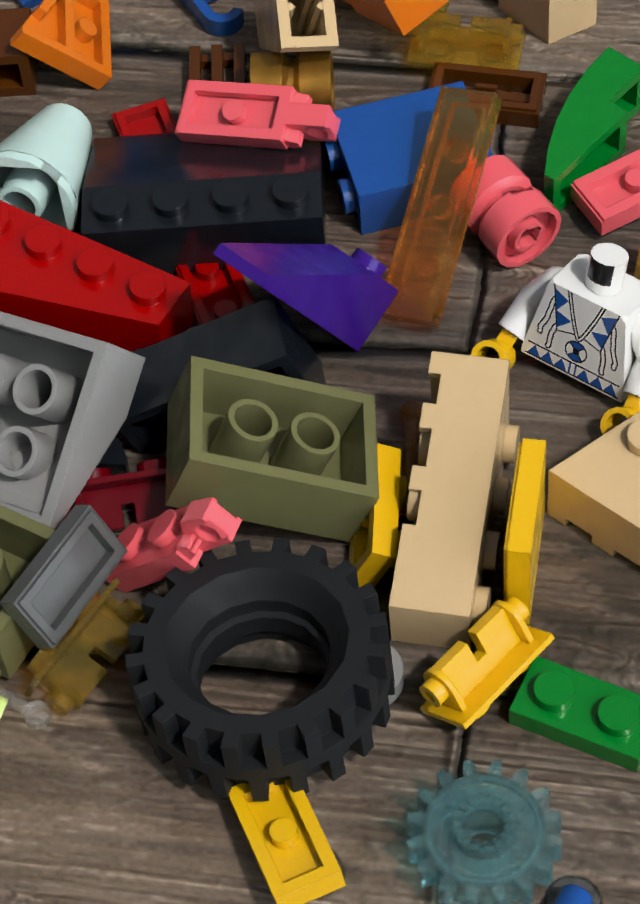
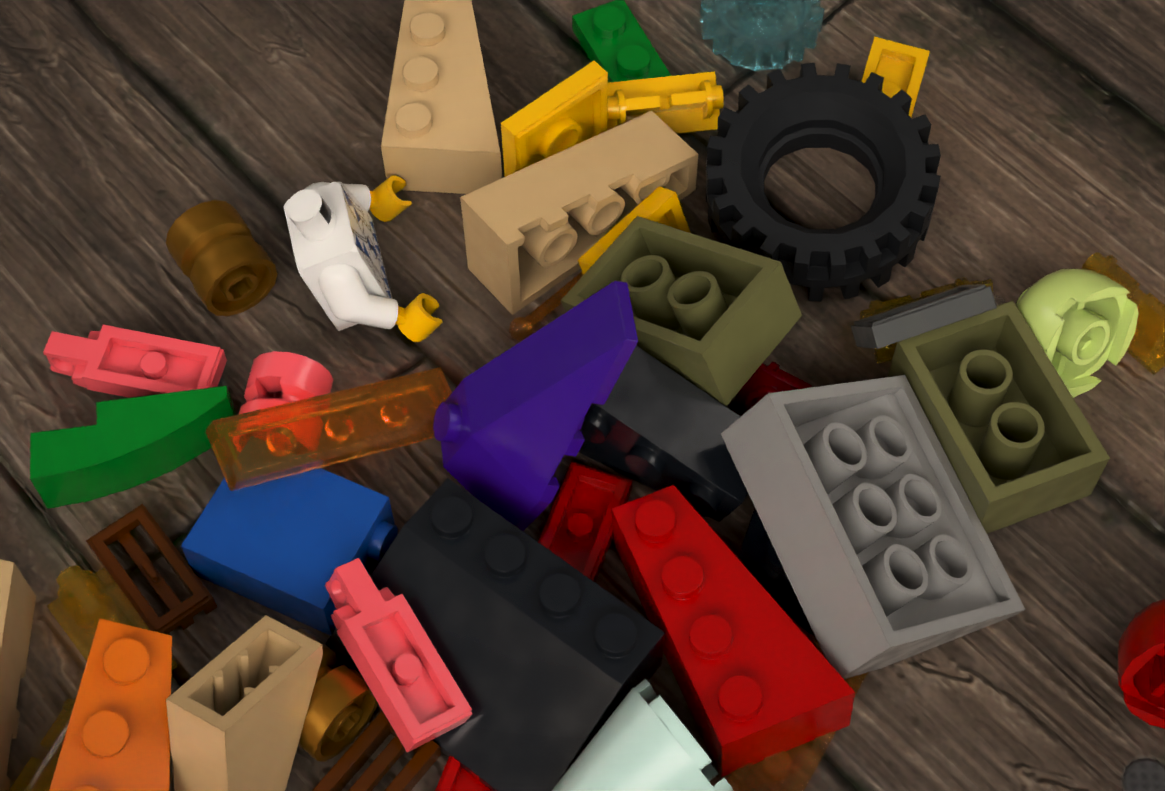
camera: 145 degrees left, 5 degrees up
(172, 541) = (824, 332): coral hinge -> none

